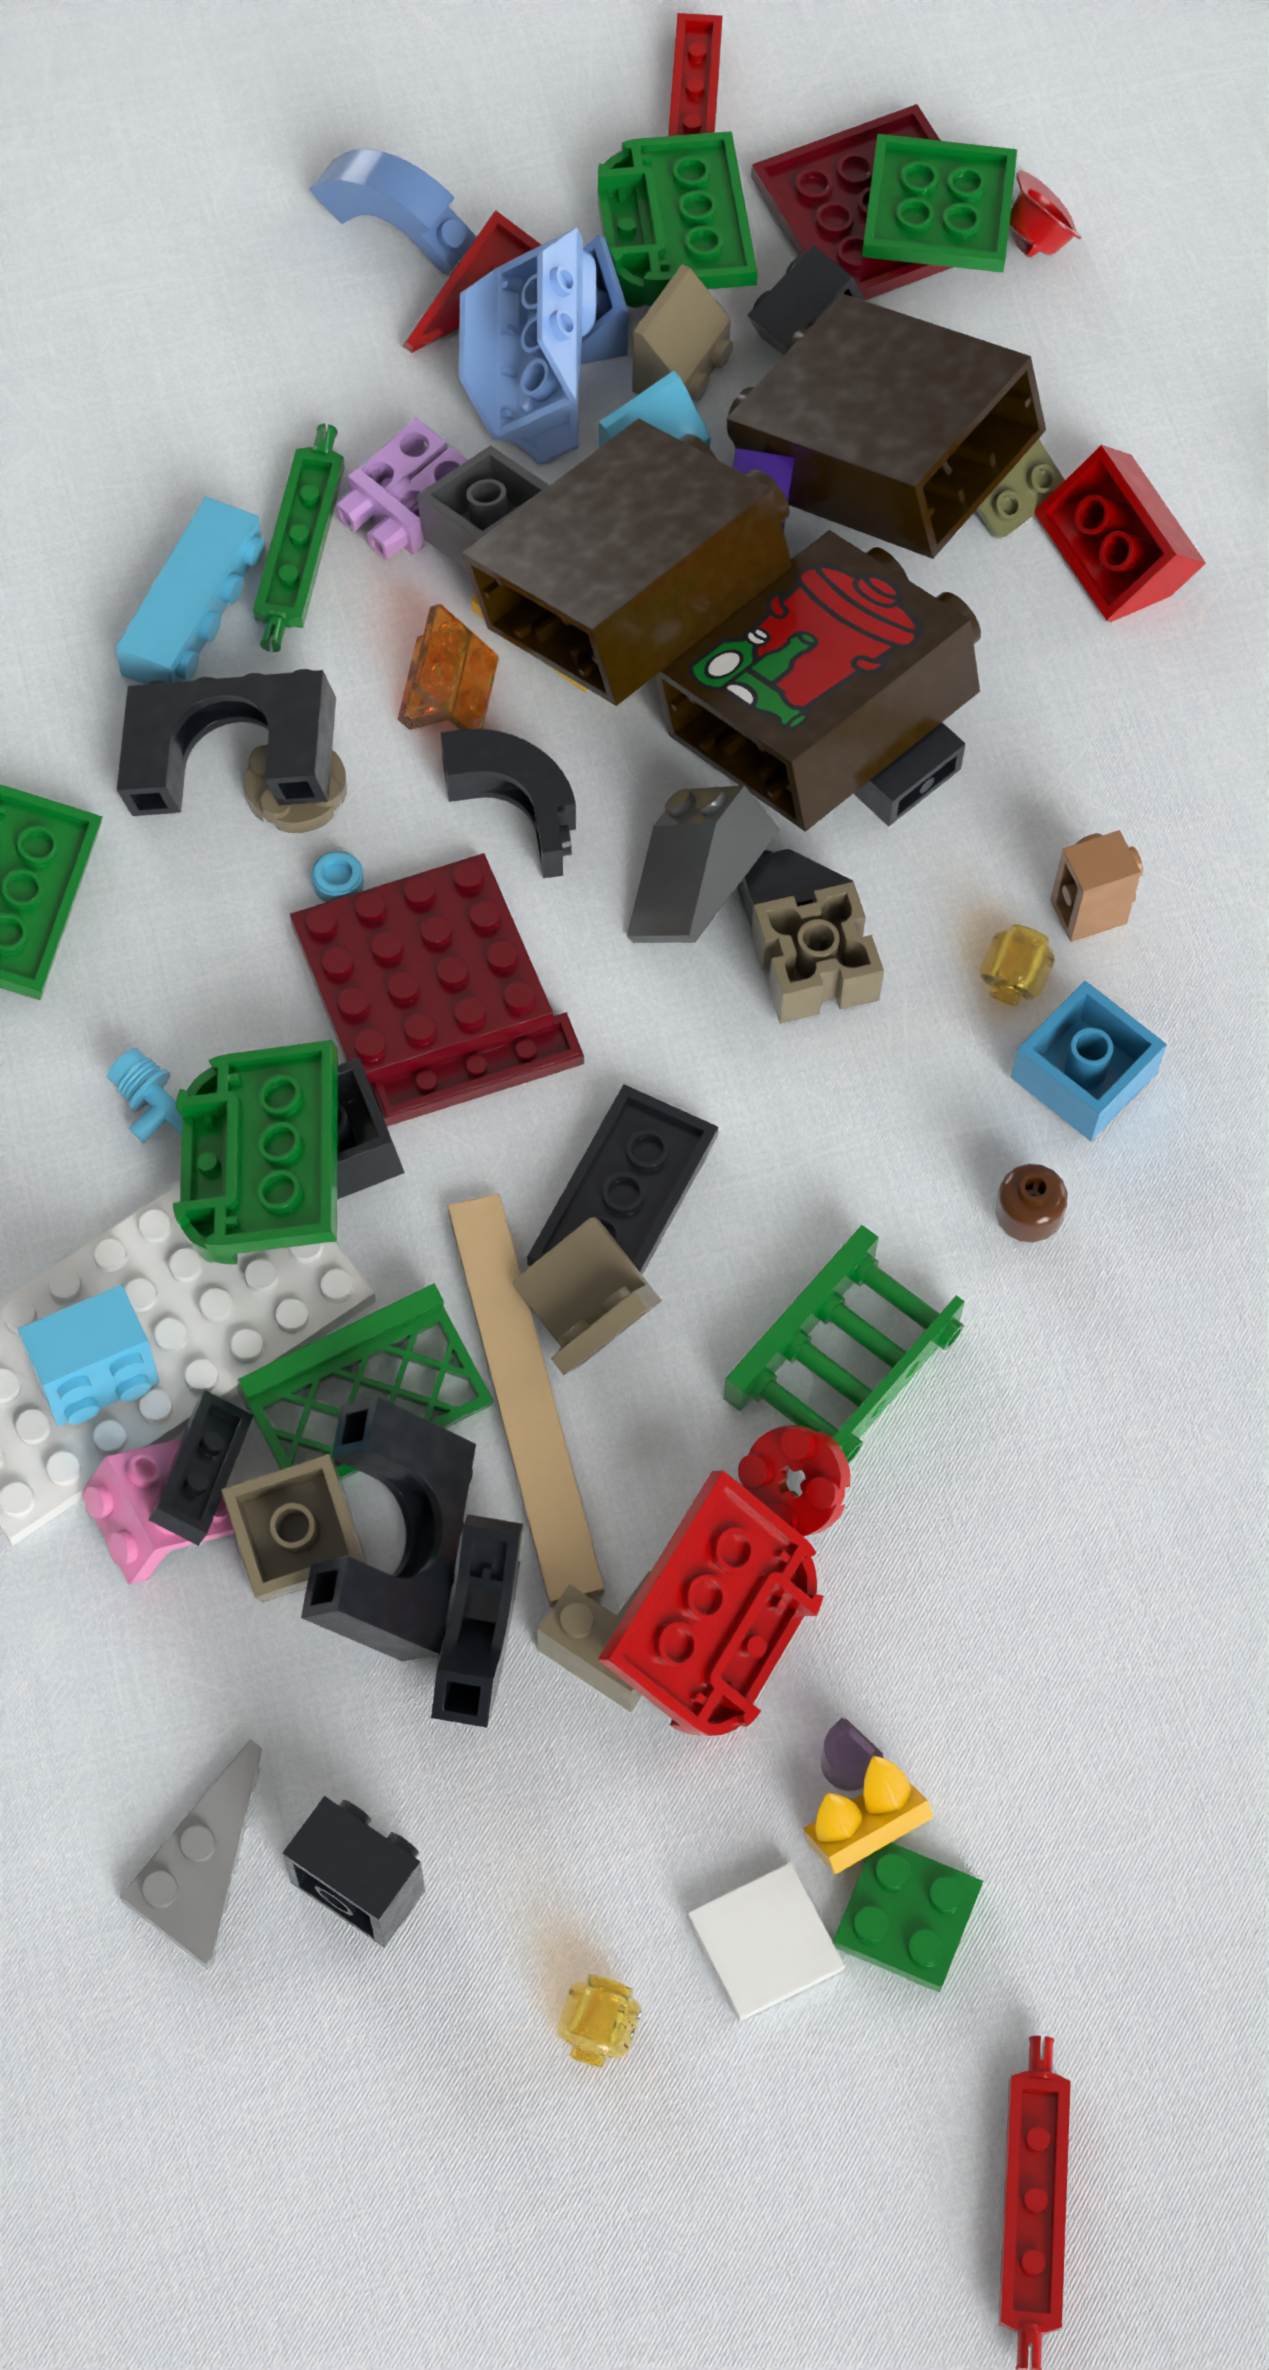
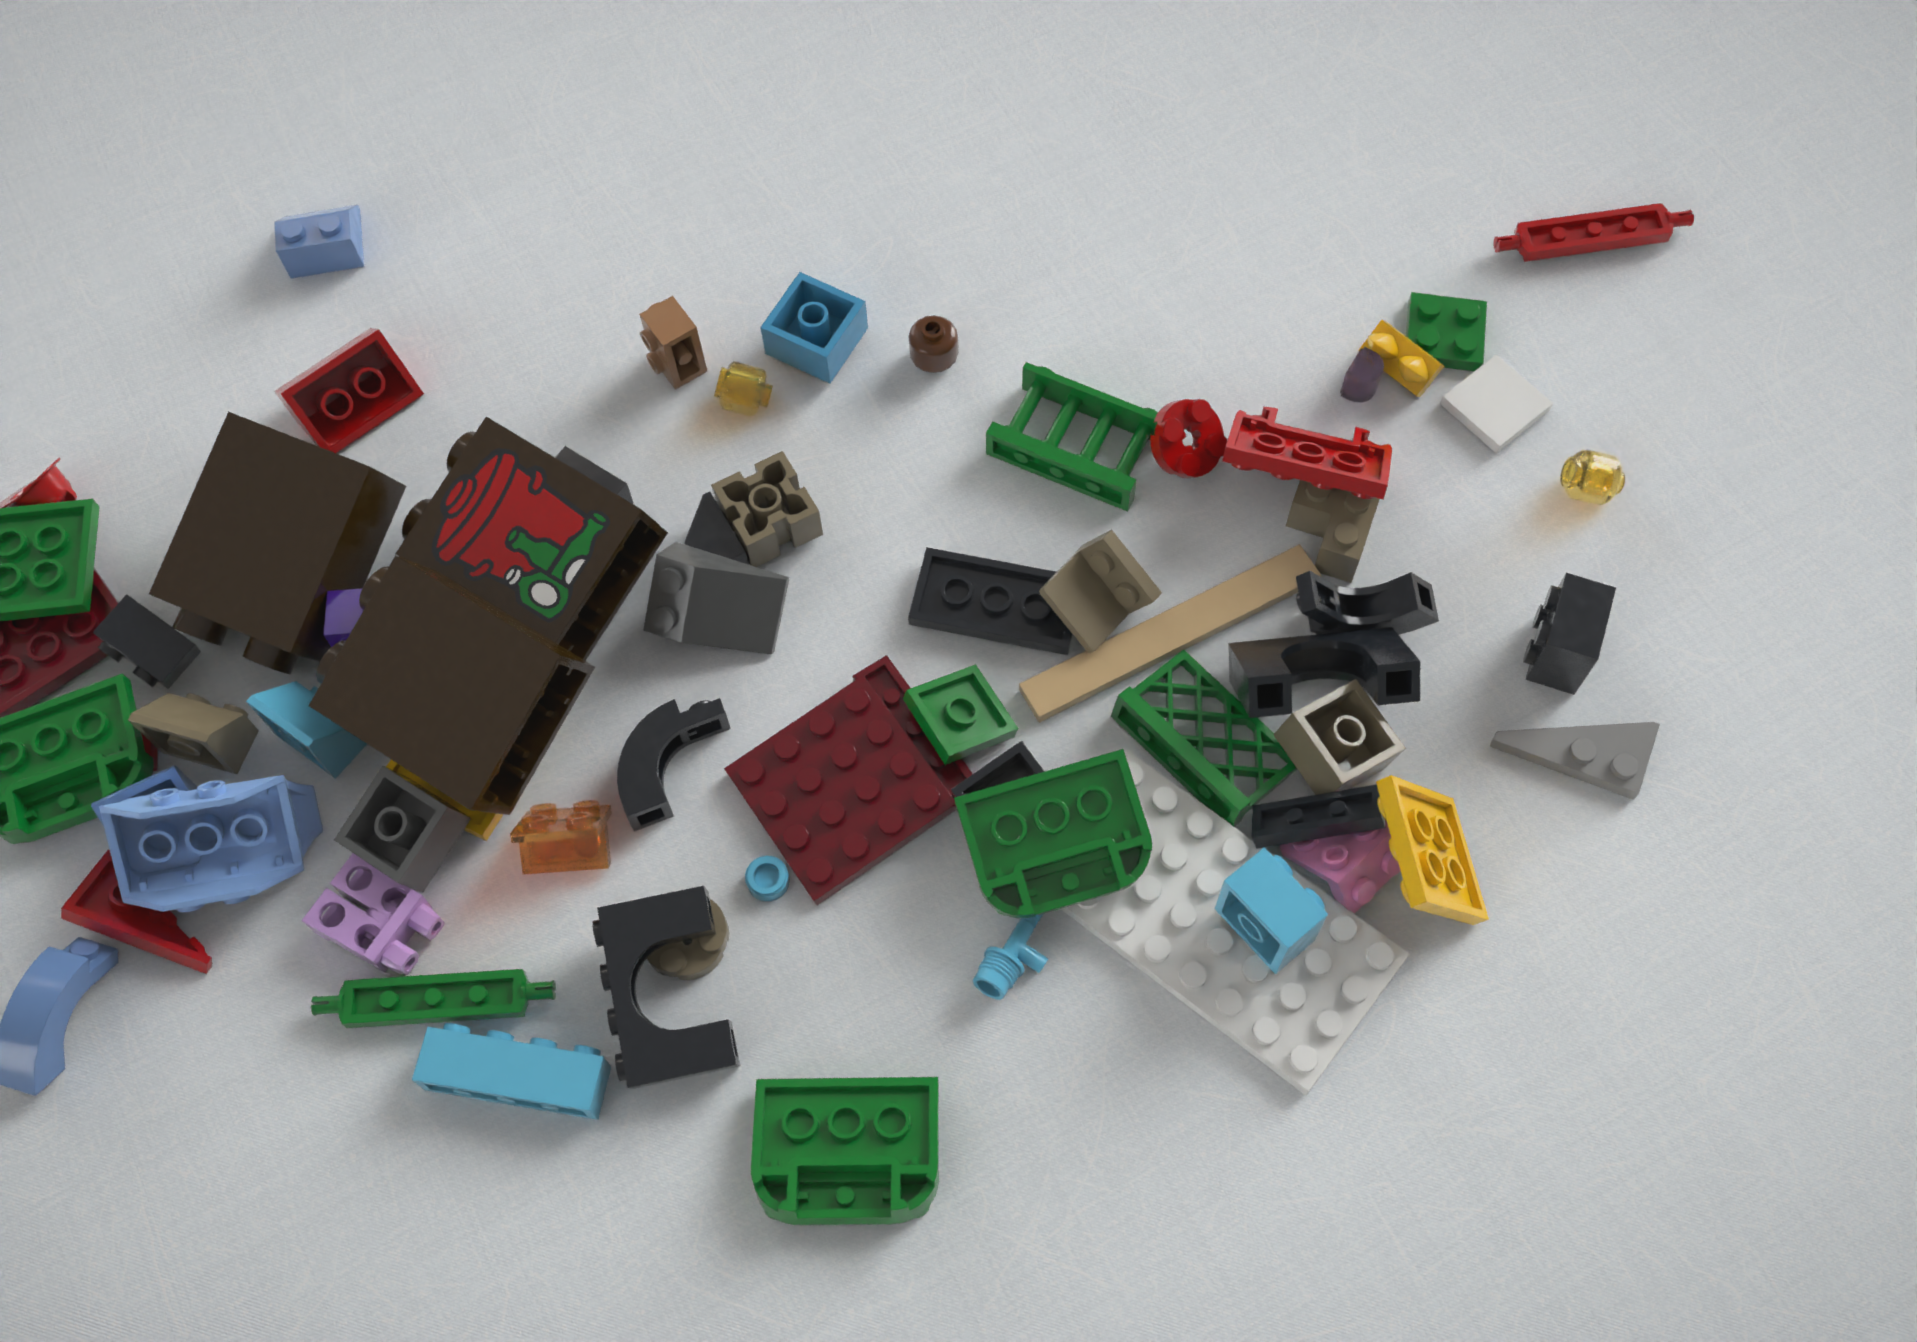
camera: 100 degrees left, 0 degrees up
(108, 1577) = (1430, 851): none -> yellow plate
(473, 1112) = (960, 714): none -> green plate

